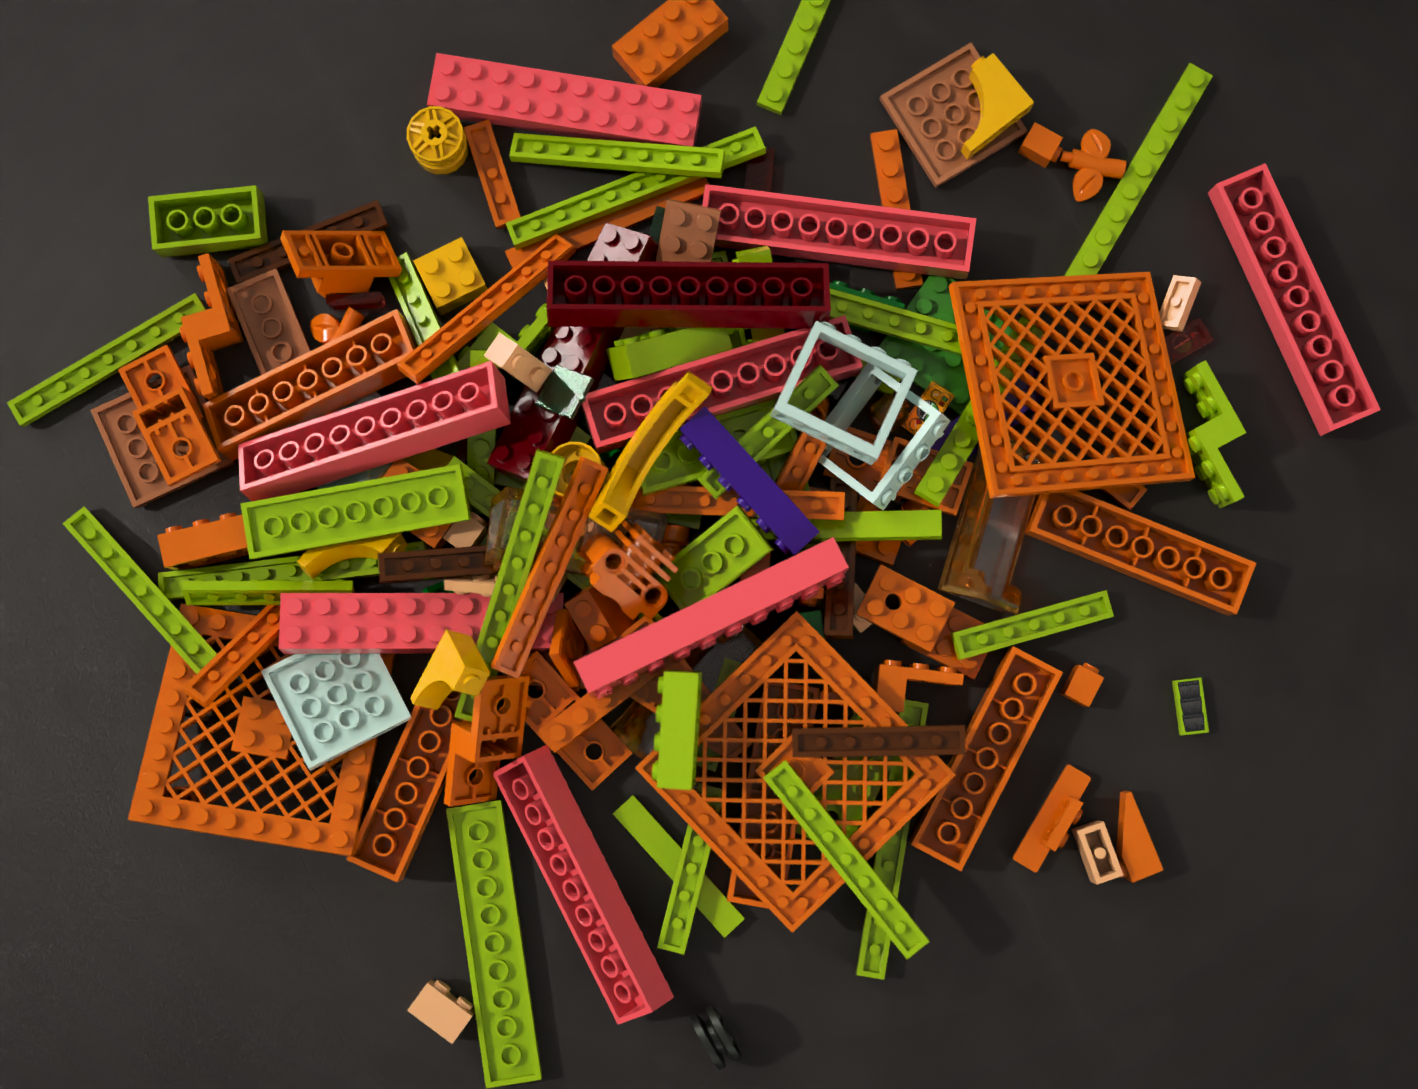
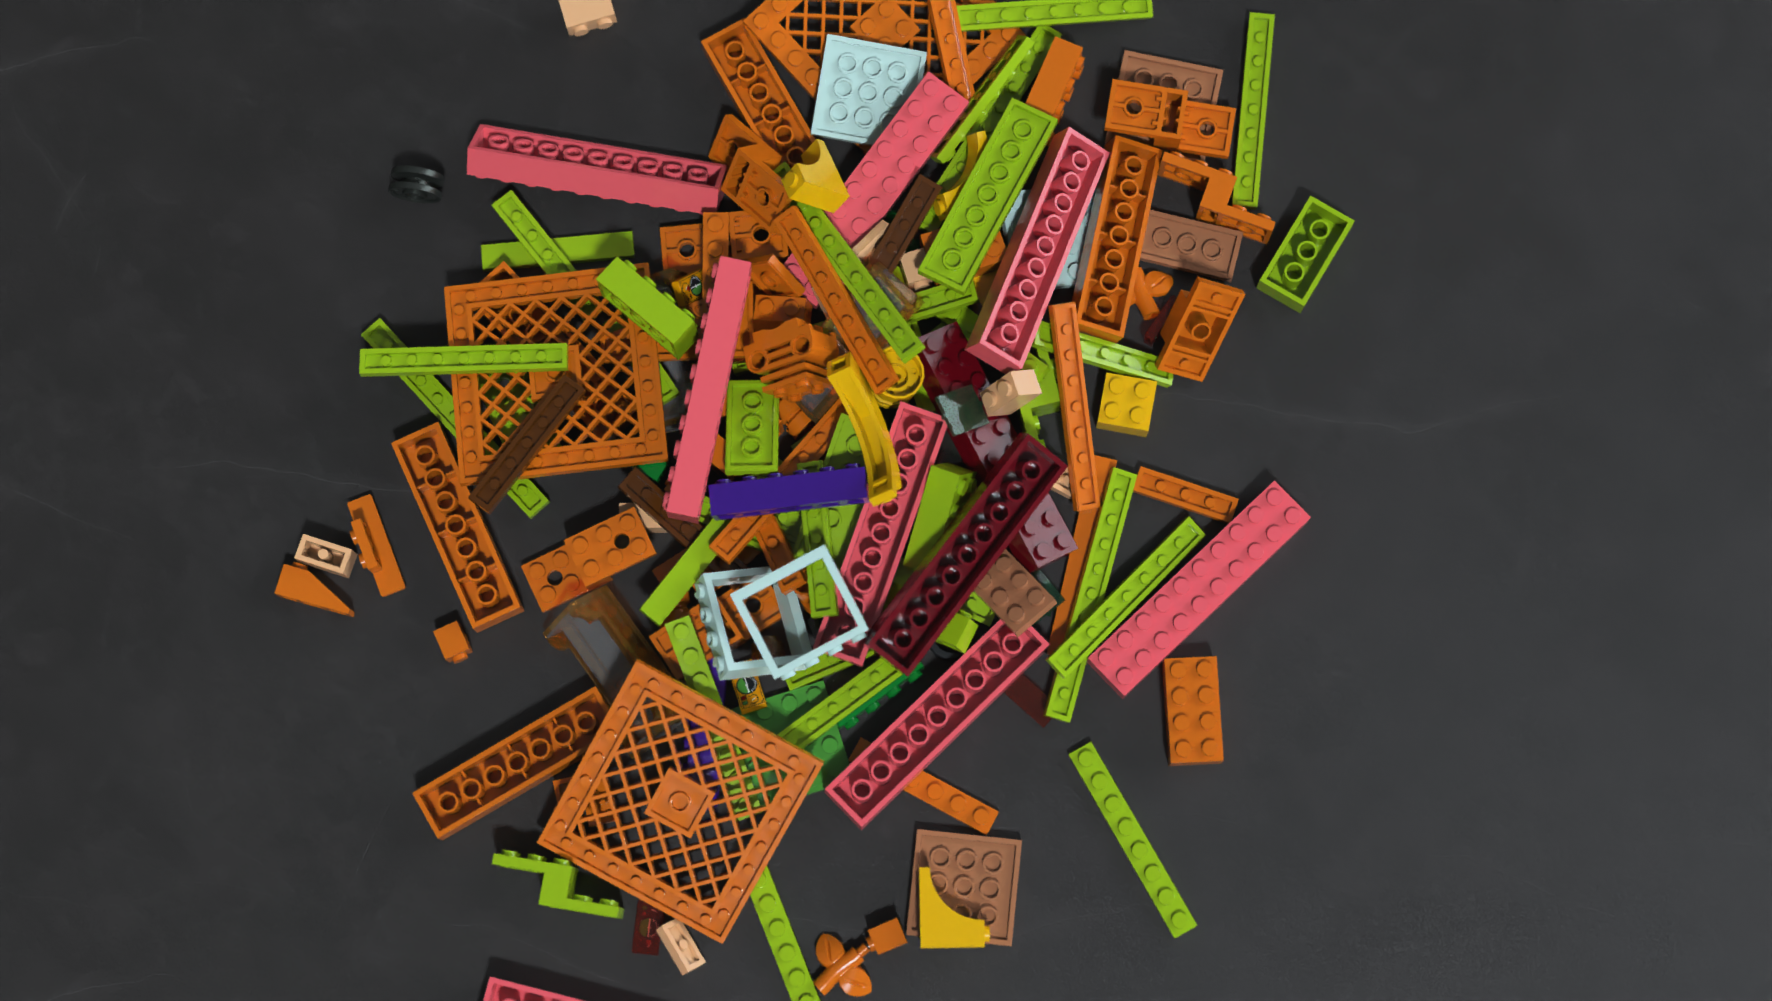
camera: 130 degrees right, 5 degrees down
(273, 255) = (1246, 278): reddish brown plate -> none
(436, 154) = (1236, 482): yellow wheel -> none
(494, 944) = (606, 81): lime plate -> none
(627, 717) = (688, 288): none -> light orange tile
(891, 681) = (569, 505): orange bracket -> none
(1031, 625) = (525, 638): lime plate -> none
(1190, 706) = (374, 713): tile -> none

